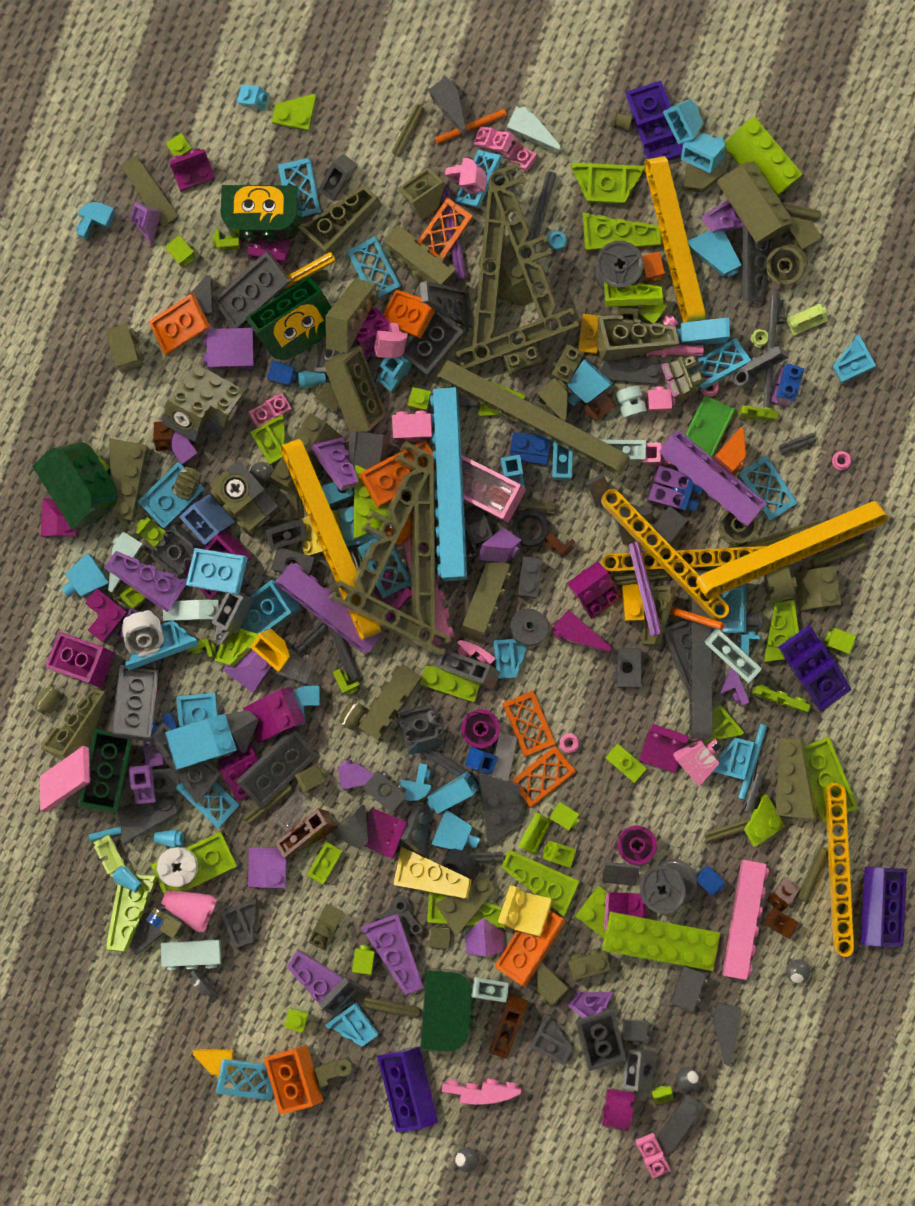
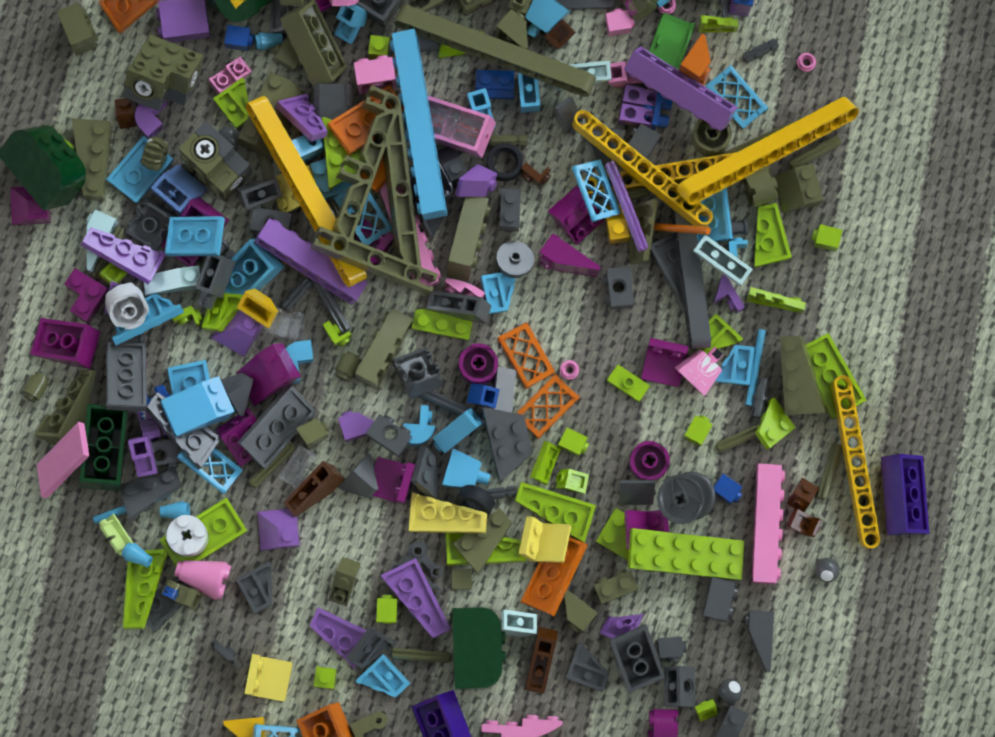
camera: 15 degrees left, 5 degrees down
(85, 577) = (61, 260): medium azure torso -> none
(150, 531) = (122, 207): lime bracket -> none
(191, 954) = (210, 624): light aqua brick -> none
(241, 1012) = (268, 678): none -> light yellow bracket
(324, 862) = (336, 517): lime plate -> none
(484, 939) = (507, 574): medium lavender slope -> none
(626, 397) = (590, 26): light aqua wheel -> none
(628, 567) = (602, 178): none -> medium azure window
(688, 818) = (698, 430): none -> lime brick
(814, 668) = (805, 267): dark purple slope -> none

